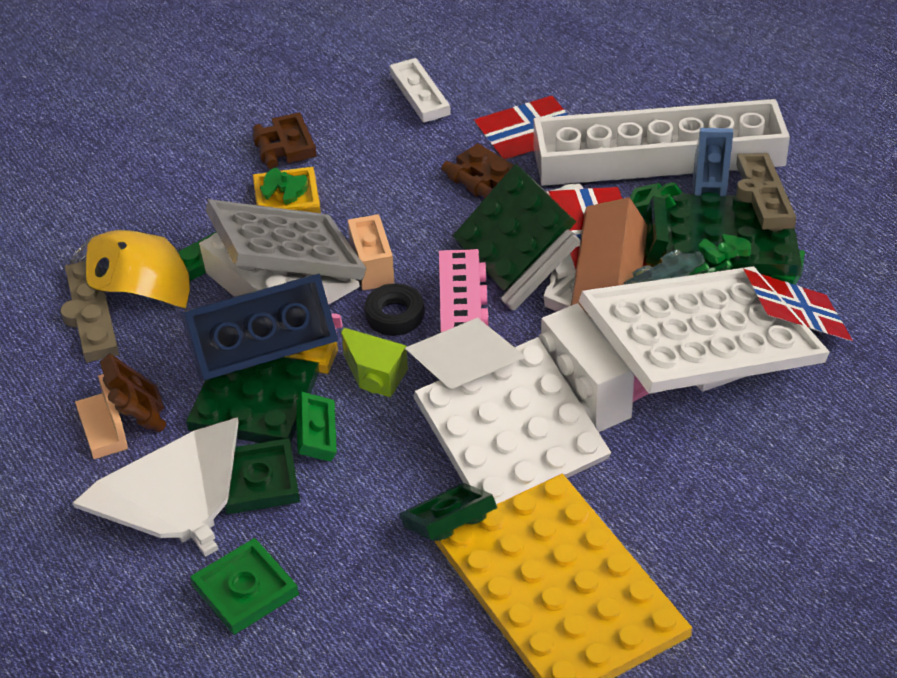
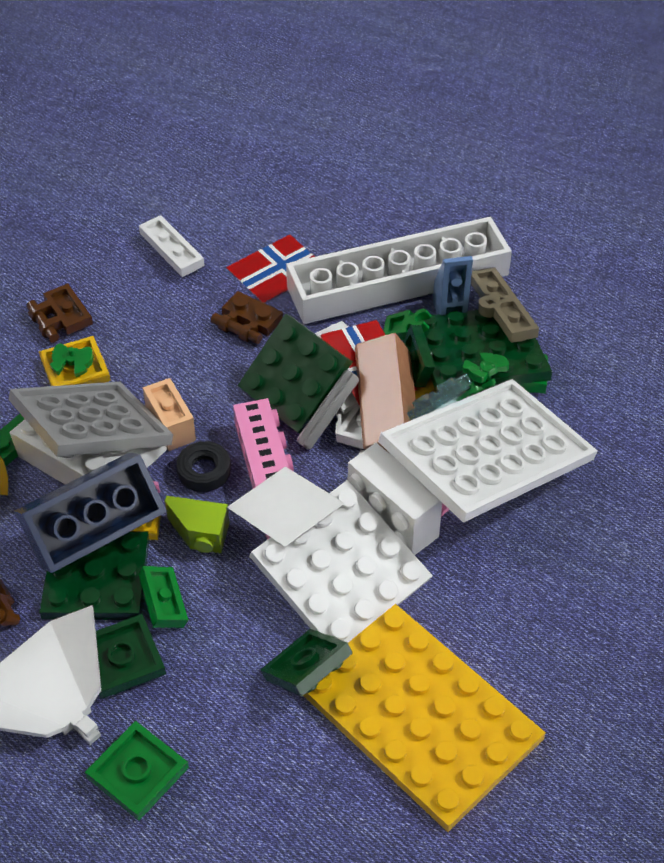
camera: 15 degrees left, 5 degrees up
(808, 305) = (562, 404): sticker -> none

